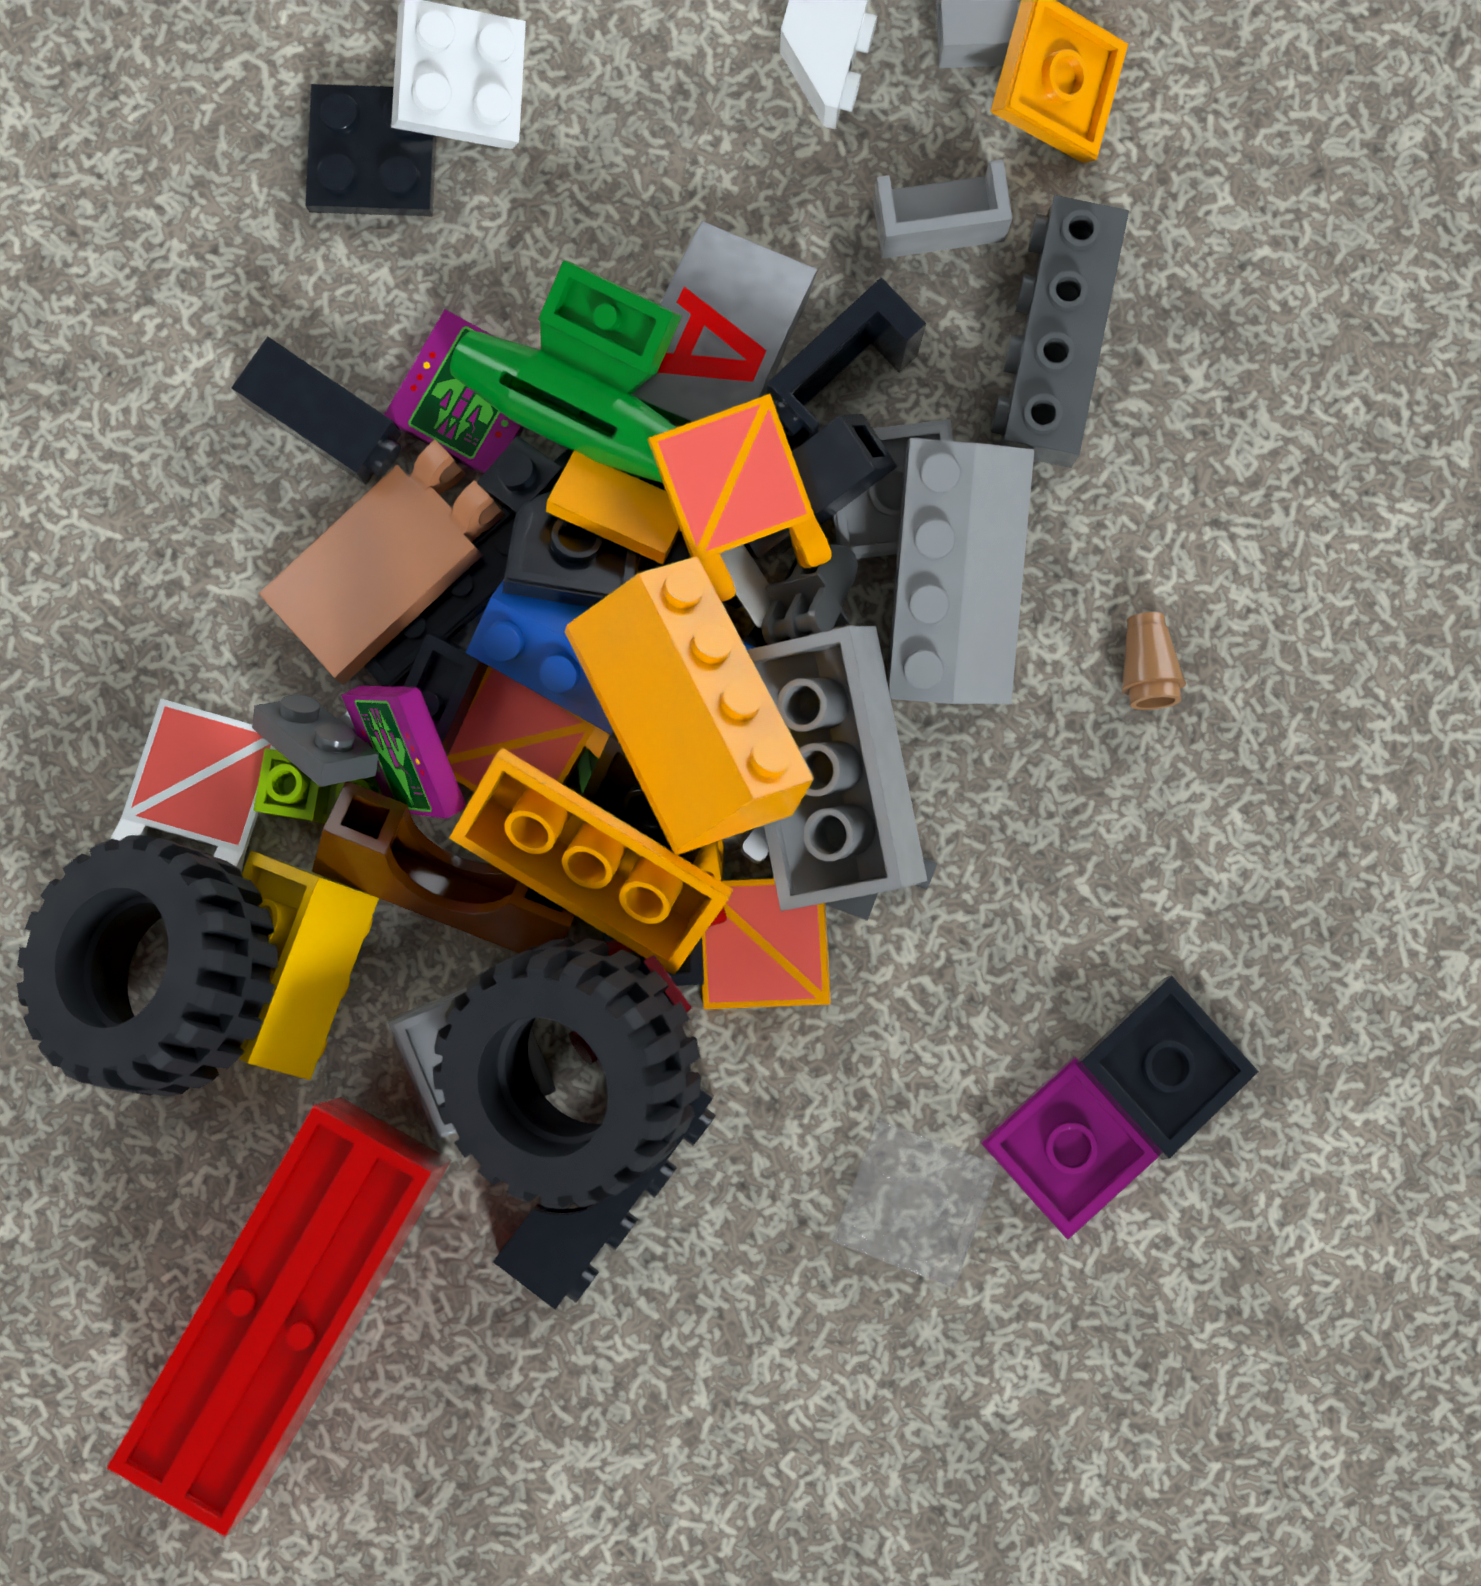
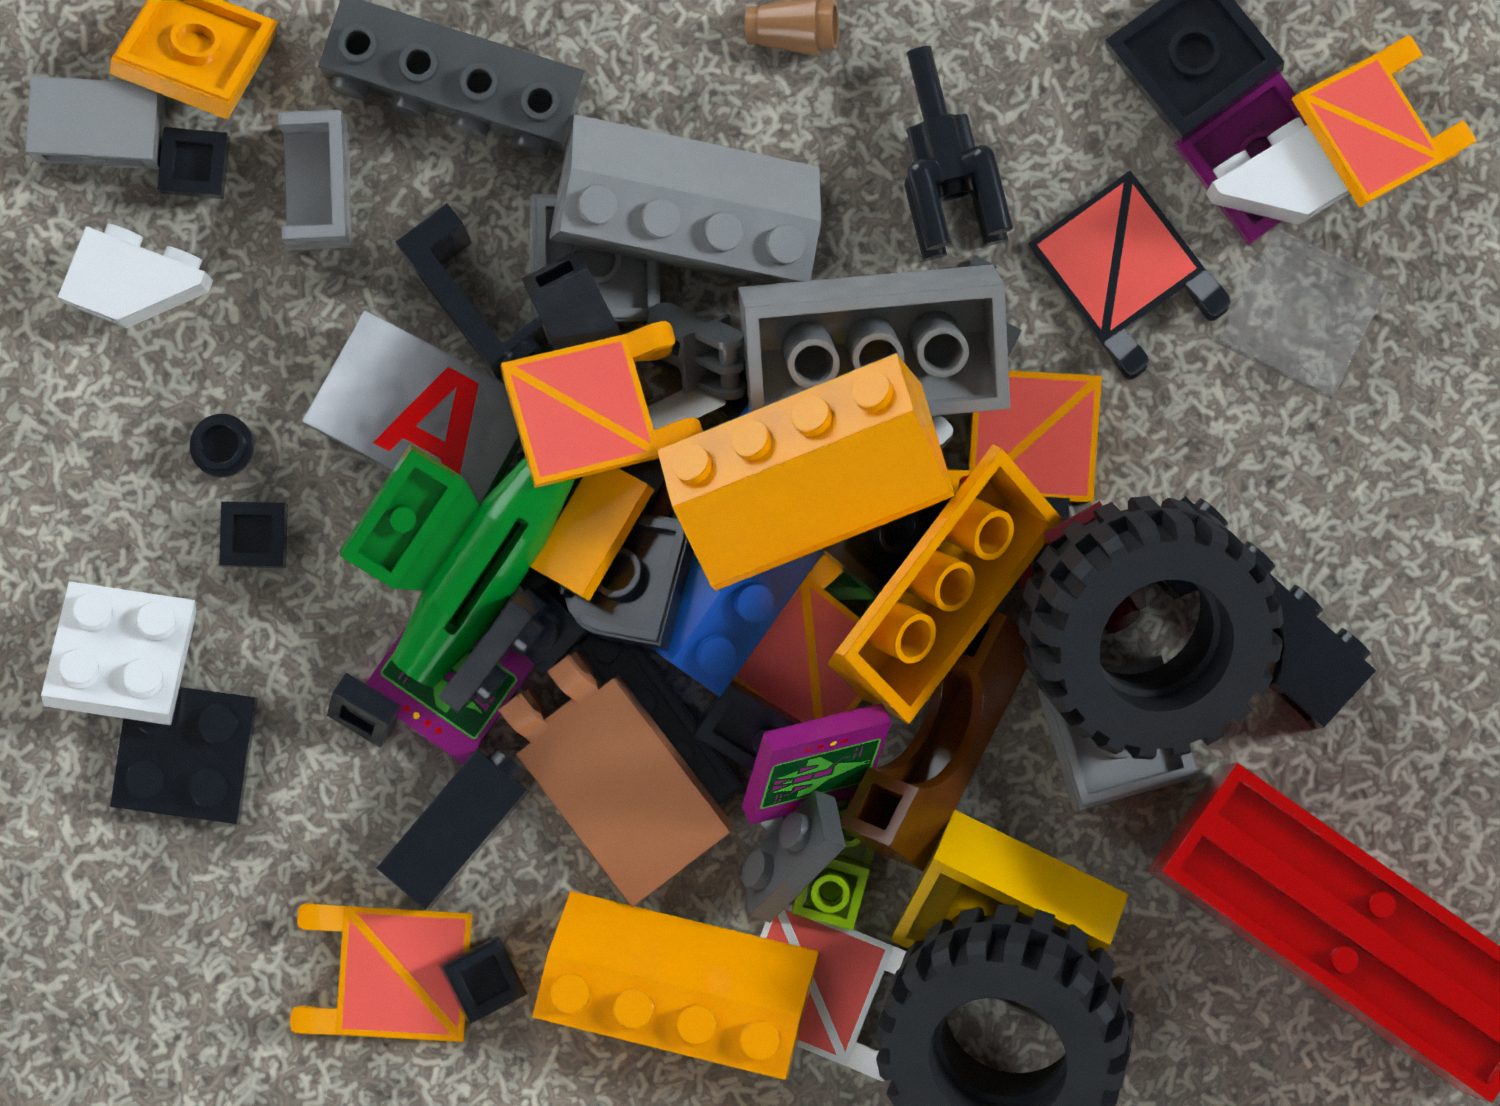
camera: 85 degrees left, 0 degrees up
(175, 372) = (389, 973): none -> coral flag
(176, 457) = (483, 979): none -> black tile
(180, 642) = (676, 985): none -> light orange slope
(425, 312) = (363, 710): none -> black tile
(506, 437) = (512, 631): none -> black plate
(587, 190) = (253, 534): none -> black plate
(672, 152) = (221, 445): none -> black plate
(947, 93) = (193, 163): none -> black plate
(947, 1013) = (1121, 262): none -> coral flag
(1026, 827) = (948, 167): none -> black plant
(1049, 1177) = (1284, 181): none -> white slope
(1110, 1255) = (1372, 127): none -> flag

